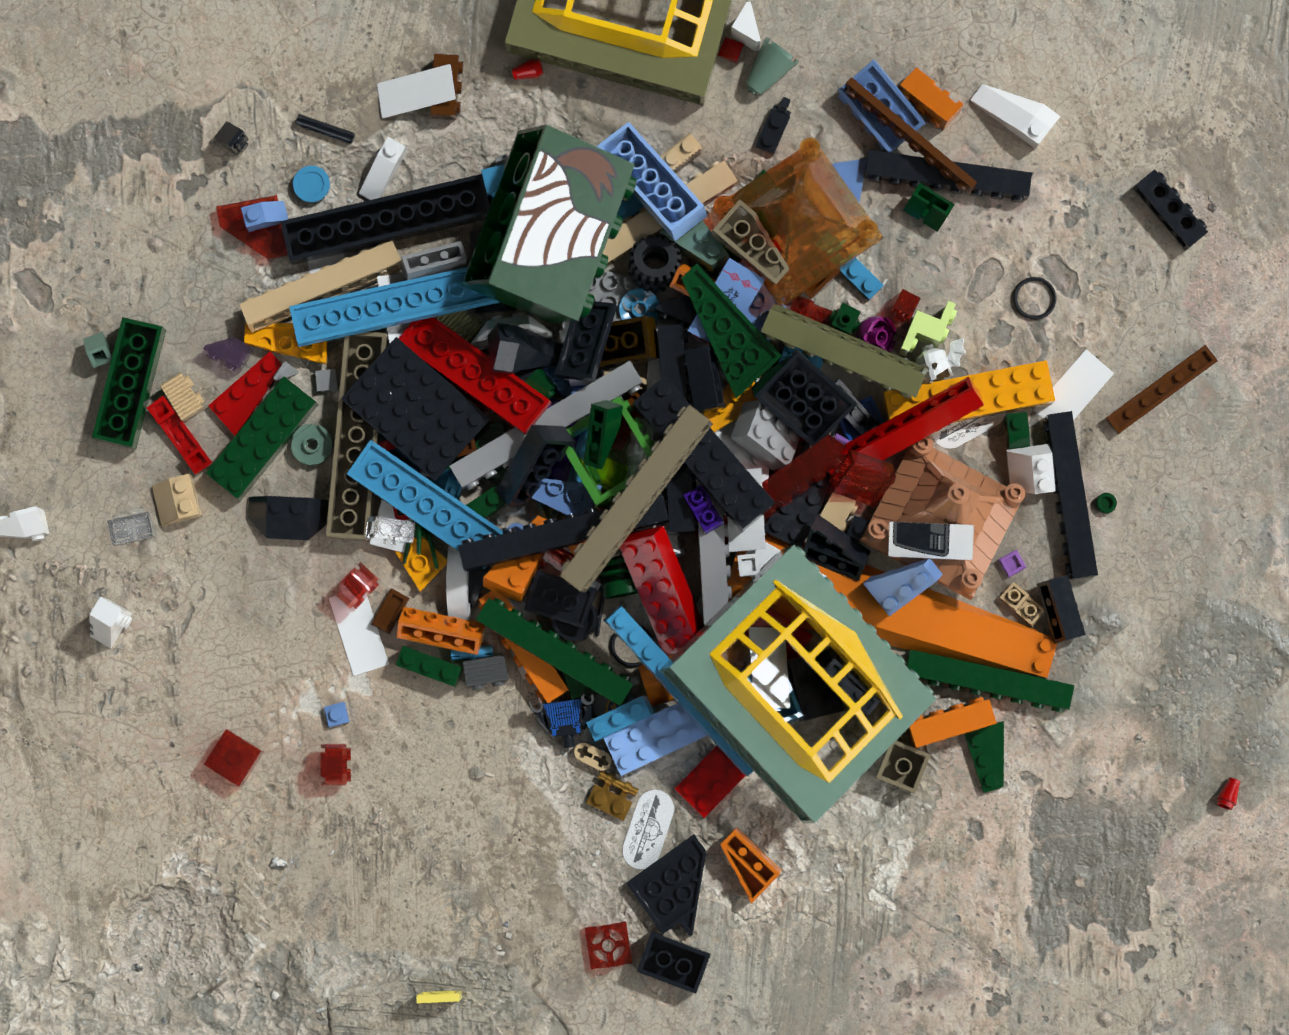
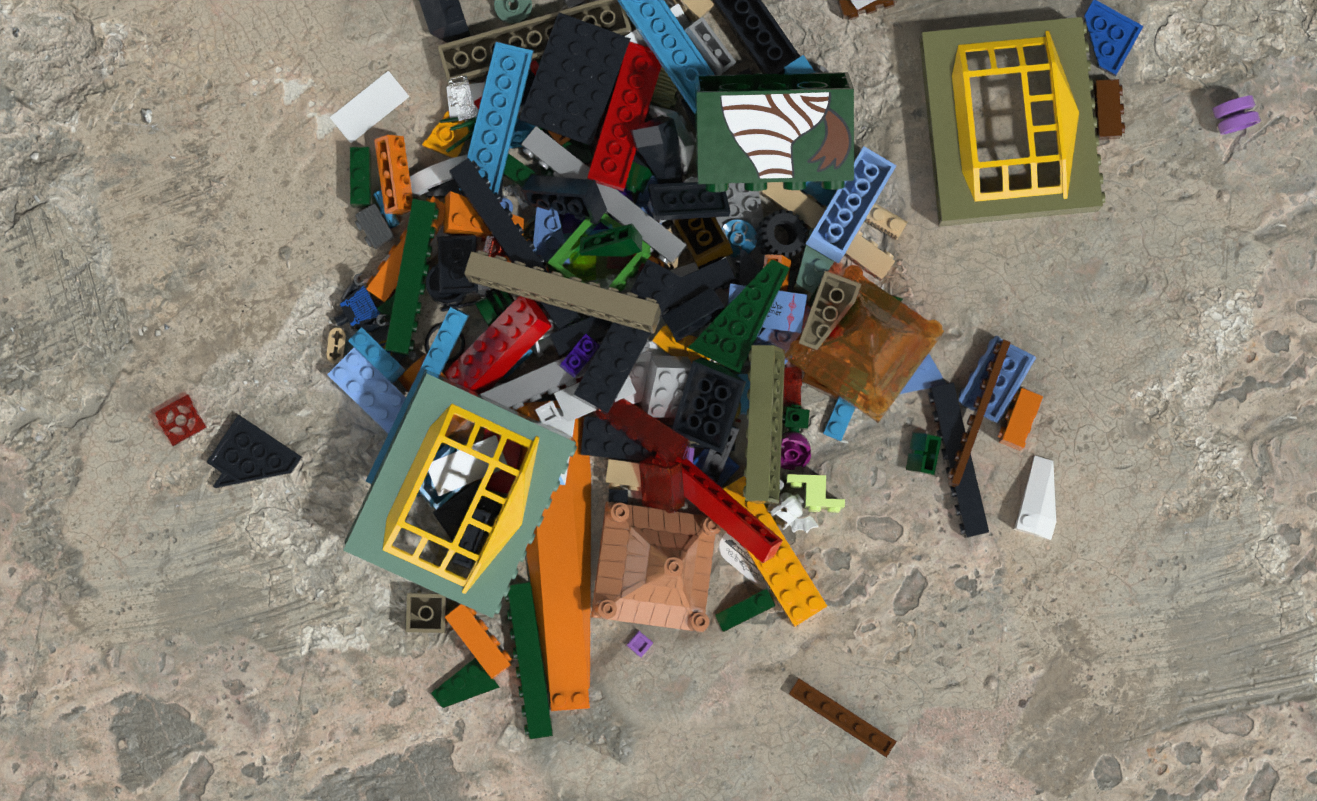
camera: 70 degrees right, 0 degrees up
(234, 758) = (221, 43): clear red brick -> none
(334, 765) = (246, 129): clear red brick -> none
(336, 714) = (291, 115): medium blue plate -> none
(356, 585) = (405, 87): clear red brick -> none
(390, 611) = (396, 126): reddish brown tile -> none
(439, 996) = (82, 292): light yellow tile -> none
(528, 70) = (909, 63): red cone -> none
(609, 801) = (303, 375): pearl gold plate -> none
(648, 829) = (292, 417): clear sticker -> none
(673, 962) = (185, 480): black brick -> none
(710, 782) = (350, 453): red plate -> none
(730, 50) = (996, 231): red slope -> none
(745, 28) = (1019, 234): white slope -> none
(750, 863) = (294, 513): orange wedge -> none
(769, 67) = (994, 269): sand green cone -> none
(774, 127) = (943, 294): black hinge -> none
(835, 550) = (590, 483): black wedge -> none
(902, 585) = (579, 551): medium blue wedge -> none
(904, 306) = (828, 465): clear red slope -> none
(931, 540) = (626, 560): sticker -> none
(1022, 604) = (607, 666): tan slope -> none
(1032, 317) = (863, 577): black tyre -> none
(1032, 468) = (727, 628): white slope -> none
(1061, 609) = (614, 700): black brick -> none
(1071, 496) = (718, 672): black brick -> none
(1077, 386) = (812, 642): white sticker -> none
(1106, 503) = (724, 706): dark green tile -> none
(1171, 221) = (986, 690): black brick -> none

